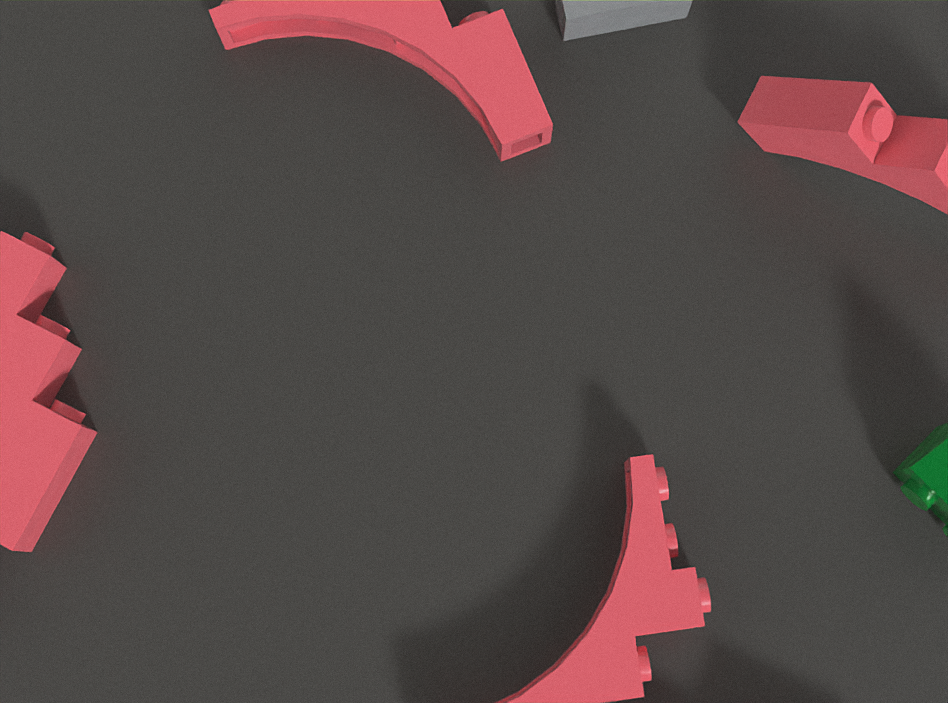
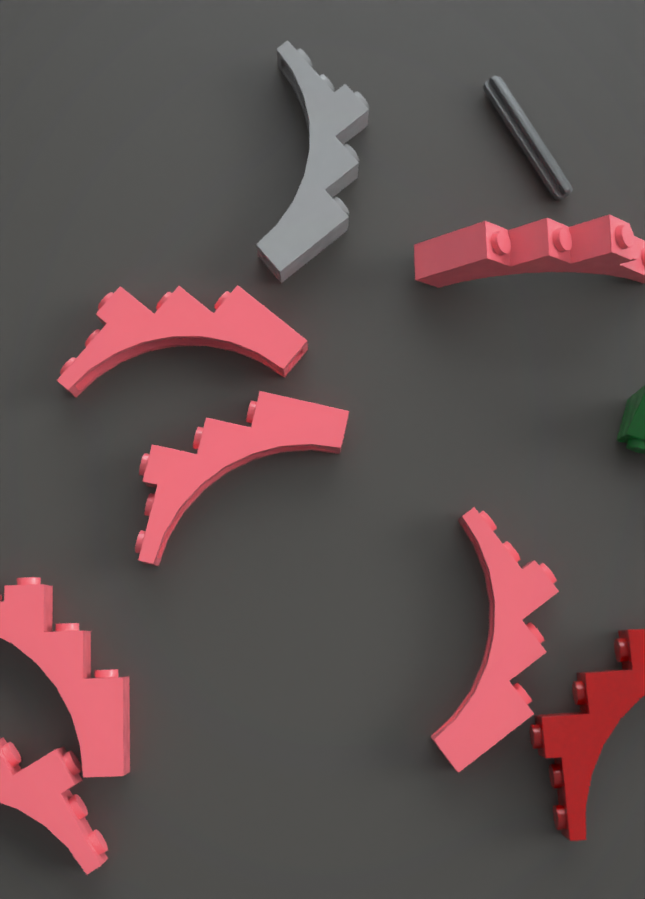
camera: 30 degrees left, 0 degrees up
(370, 206) = (181, 476): none -> coral arch

